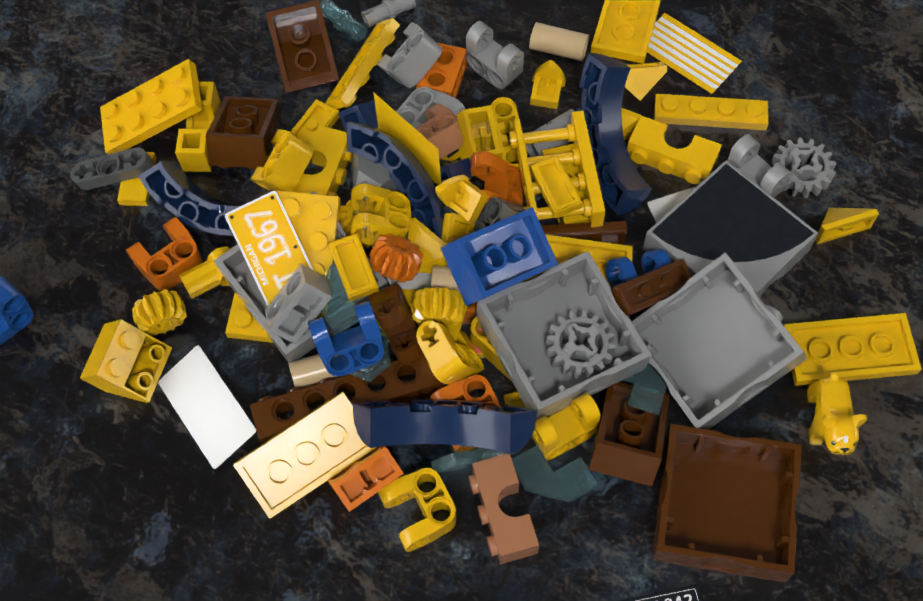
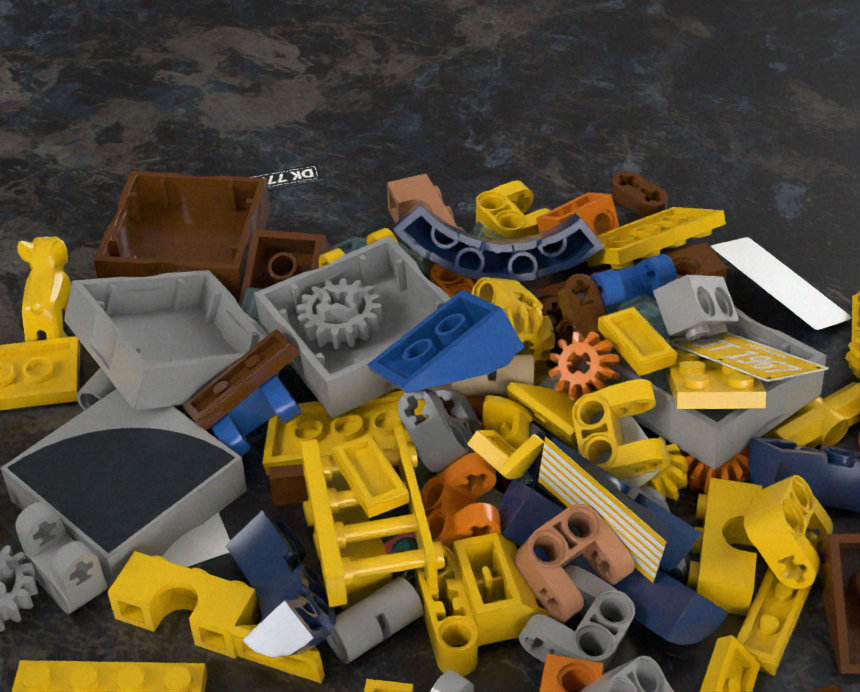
camera: 175 degrees right, 20 degrees down
(290, 549) = (638, 194): none -> reddish brown beam

